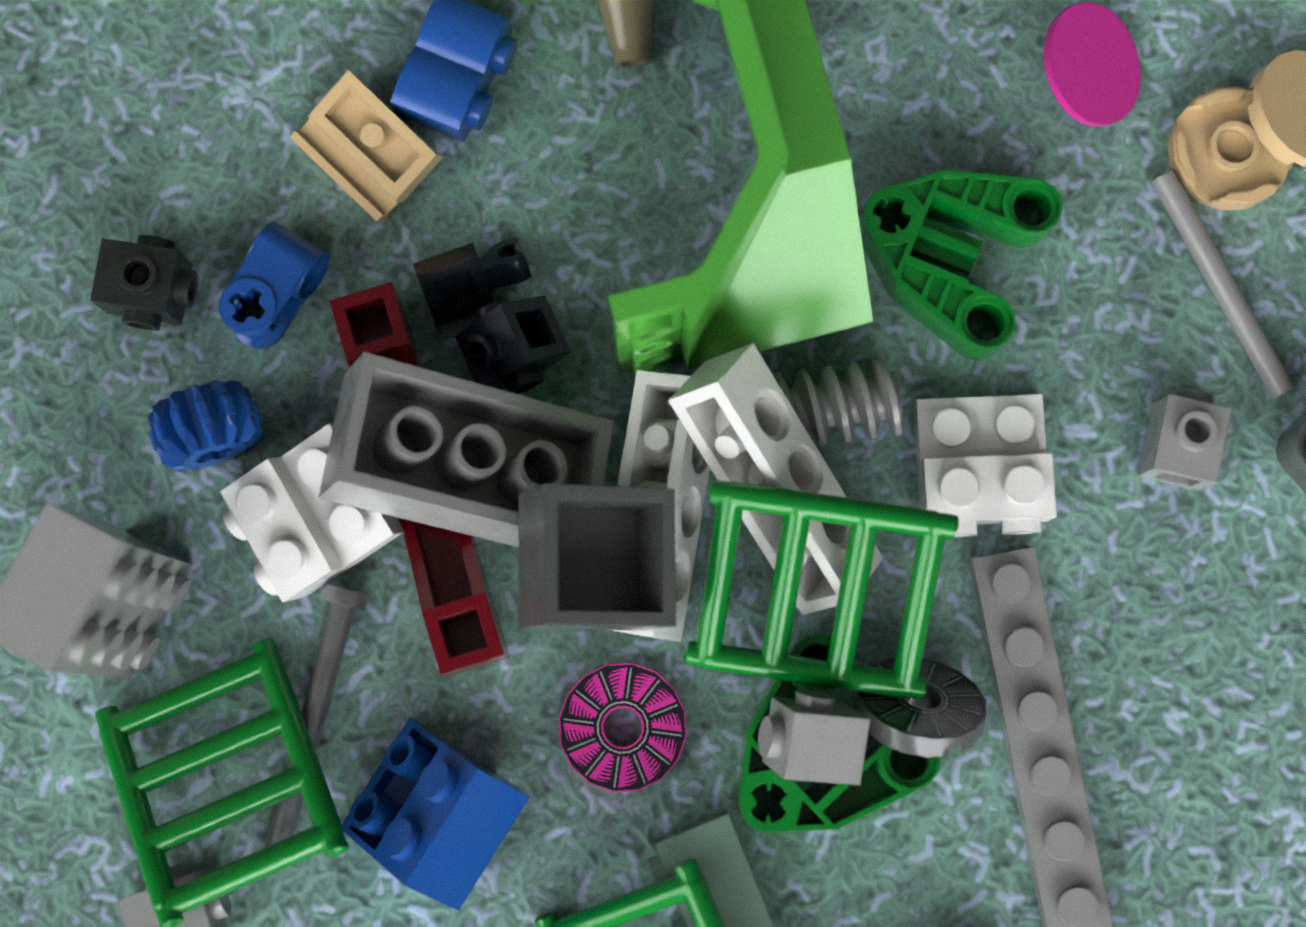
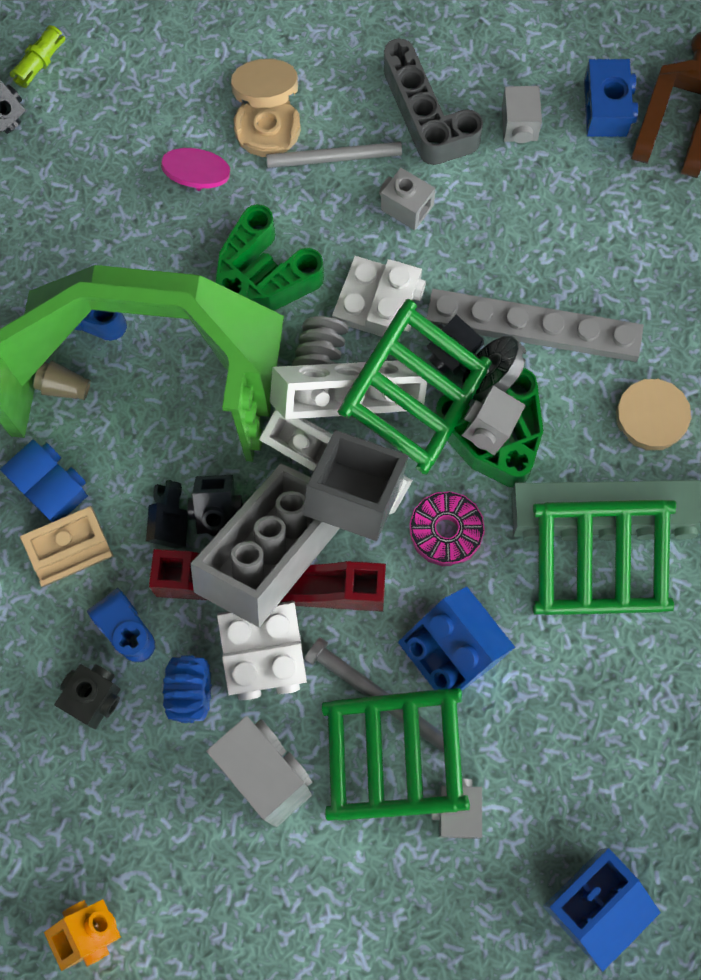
camera: 65 degrees left, 10 degrees down
(958, 628) = (463, 335): none -> black brick

